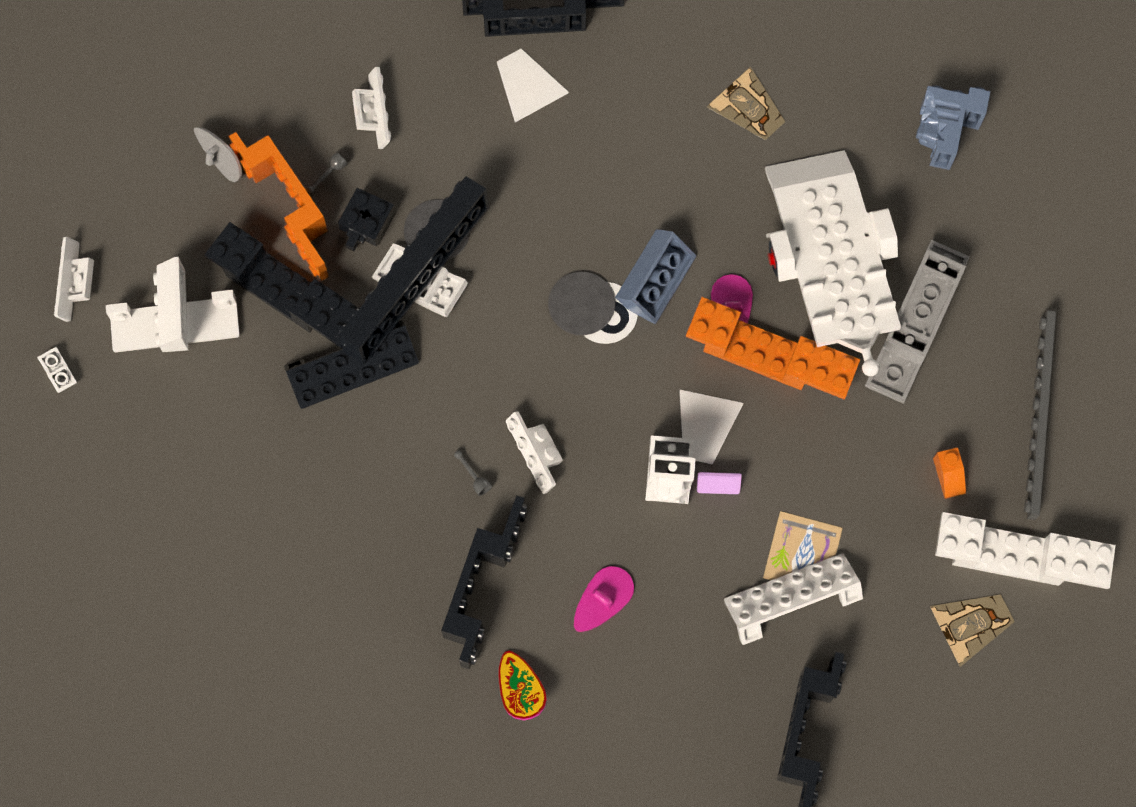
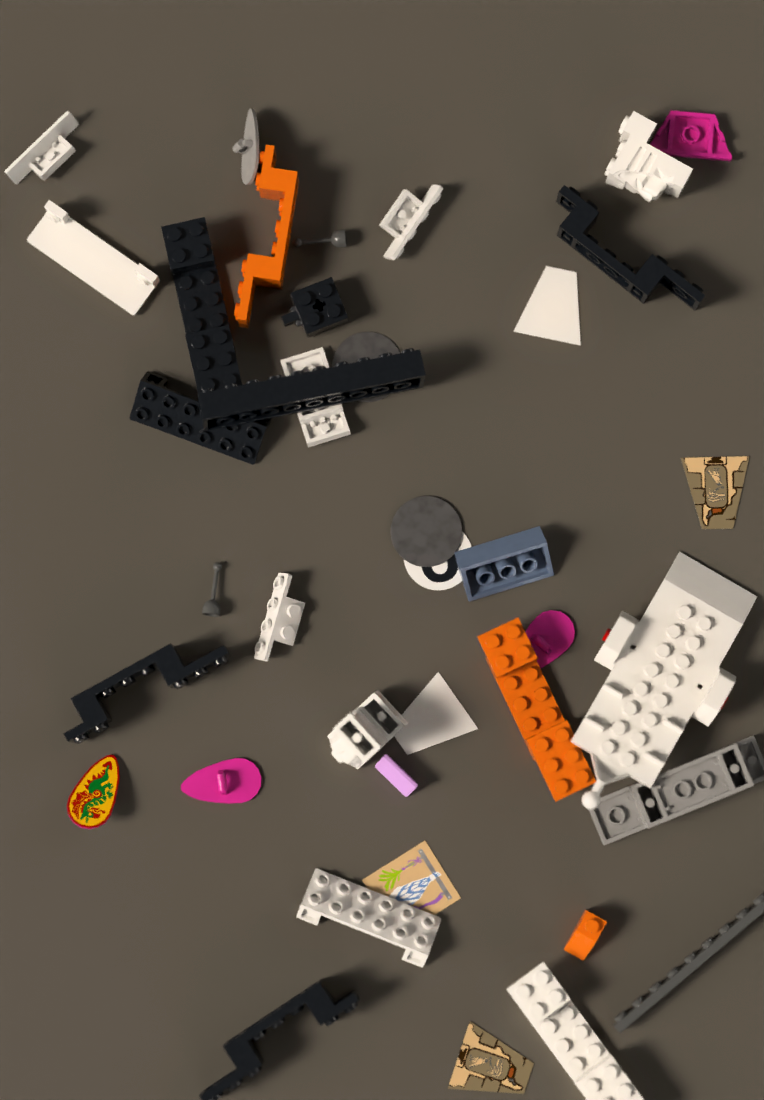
camera: 45 degrees right, 10 degrees up
(171, 306) = (100, 246): white slope -> none

